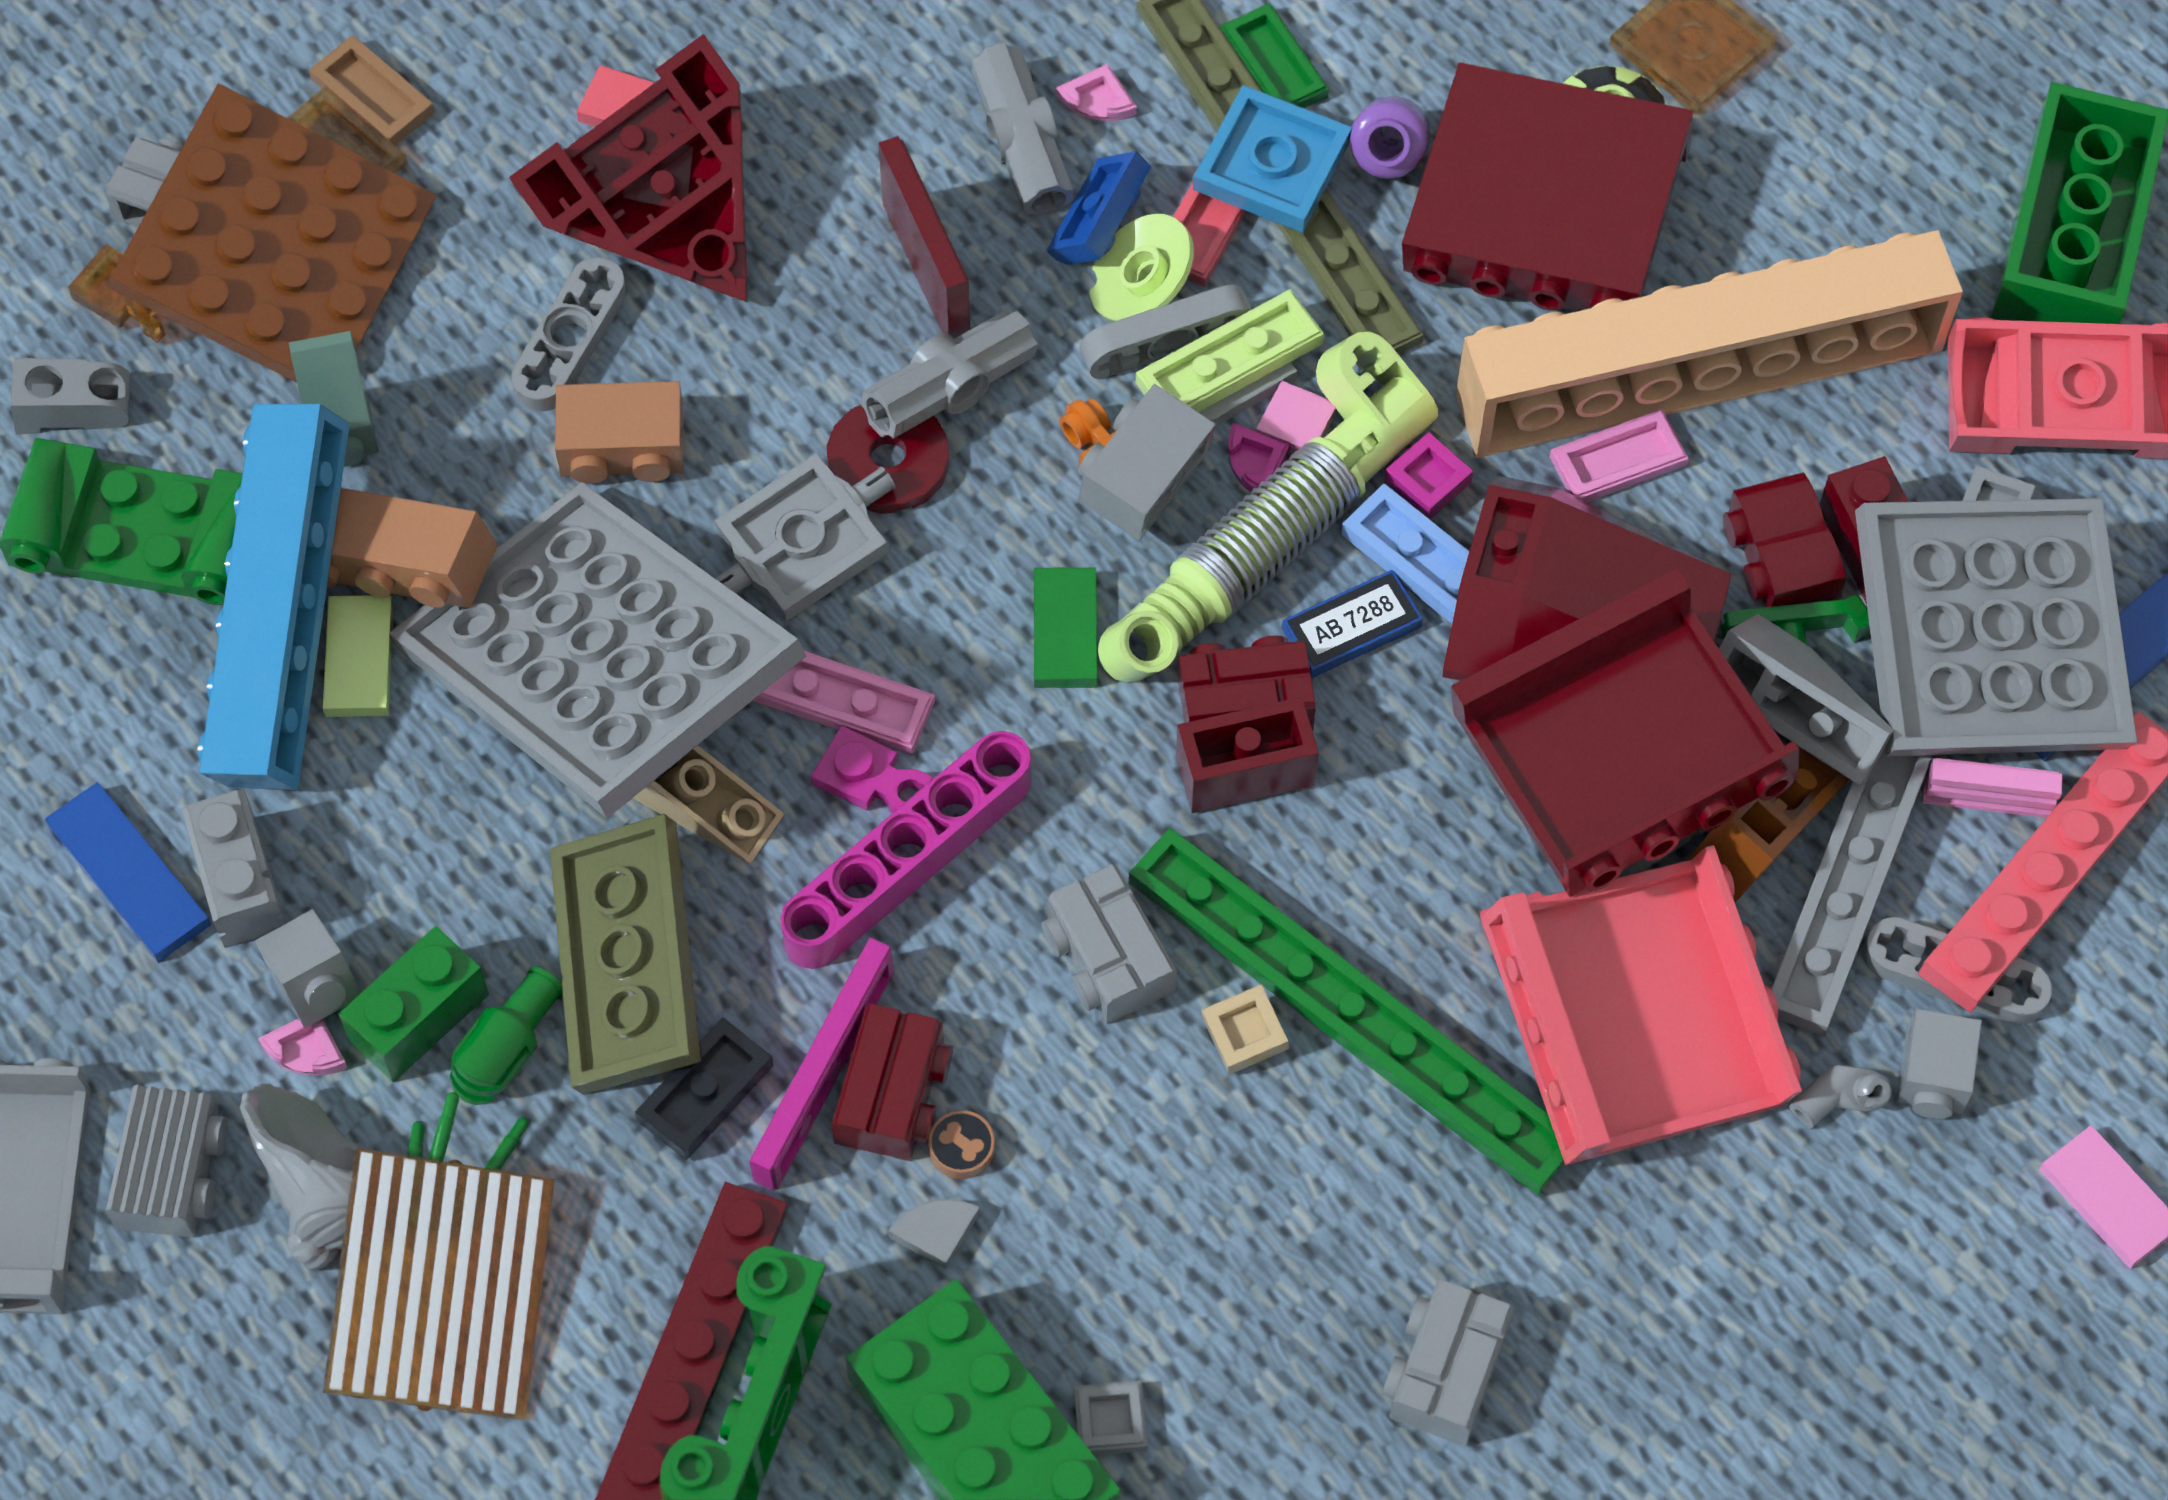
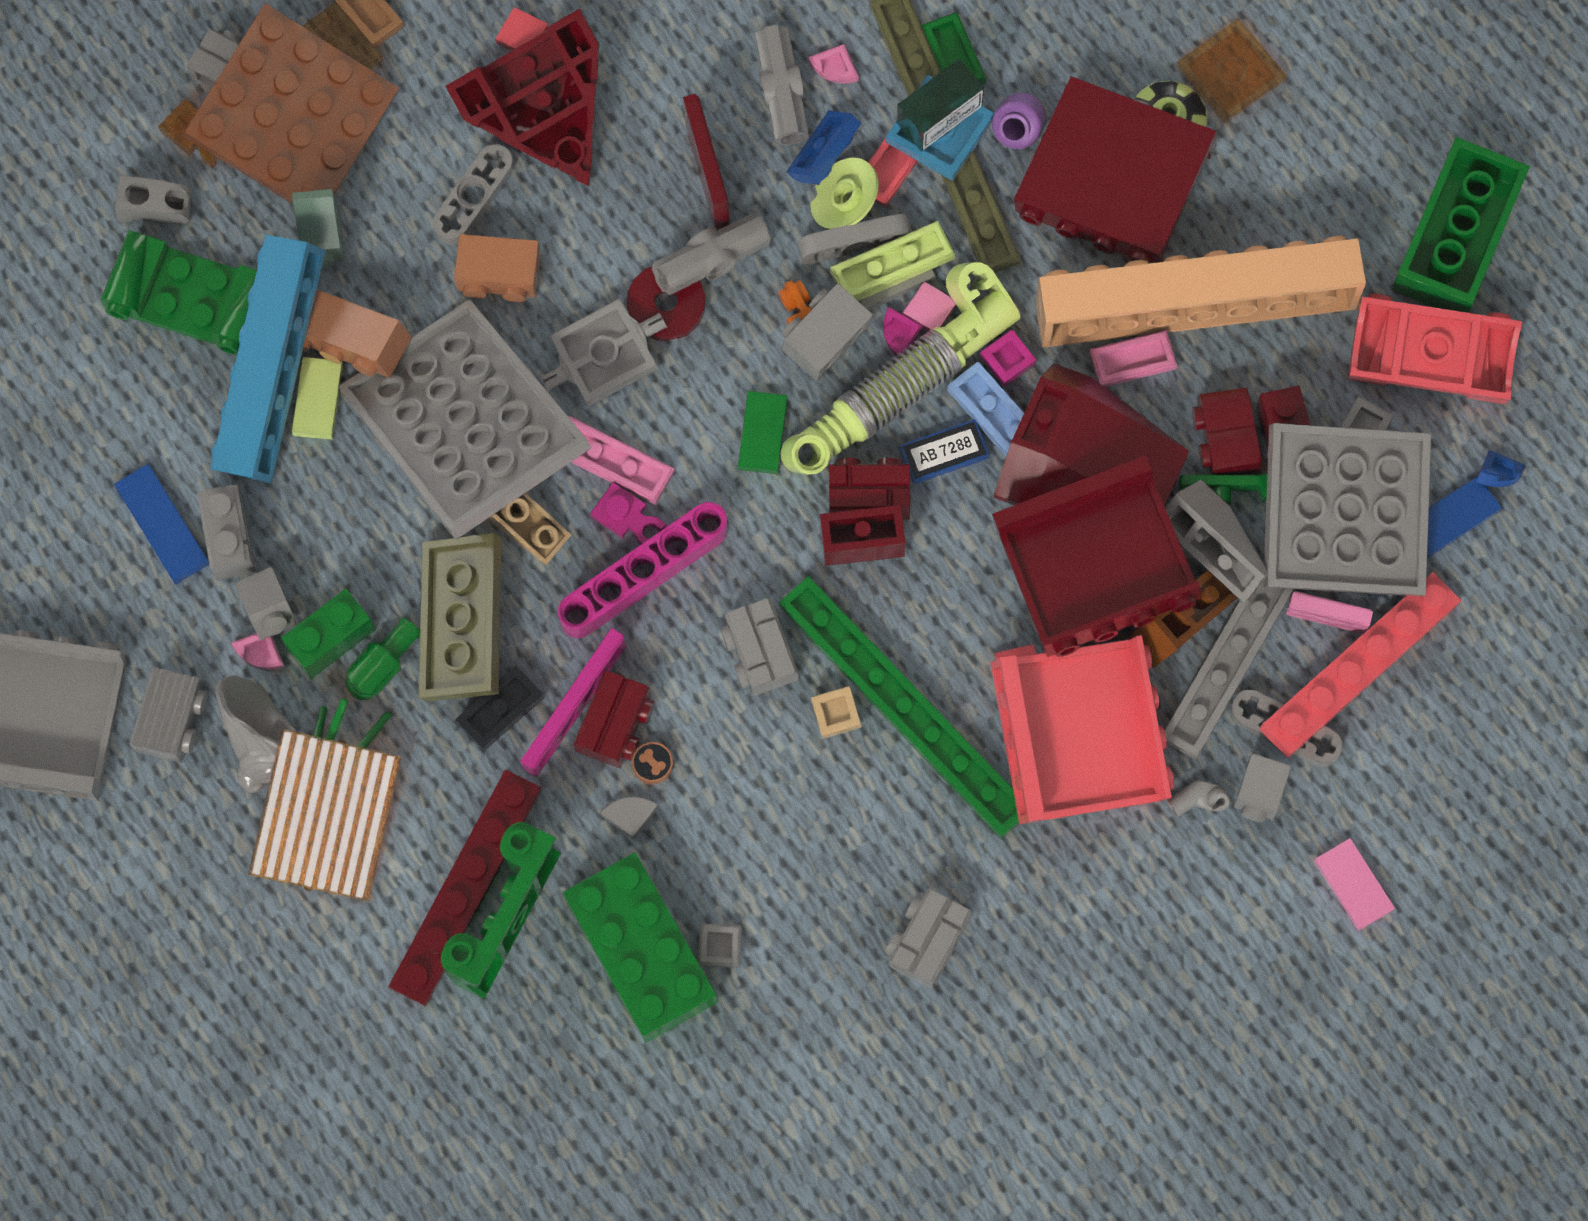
camera: 10 degrees right, 10 degrees up
(1270, 117) = (940, 105): none -> clear green brick

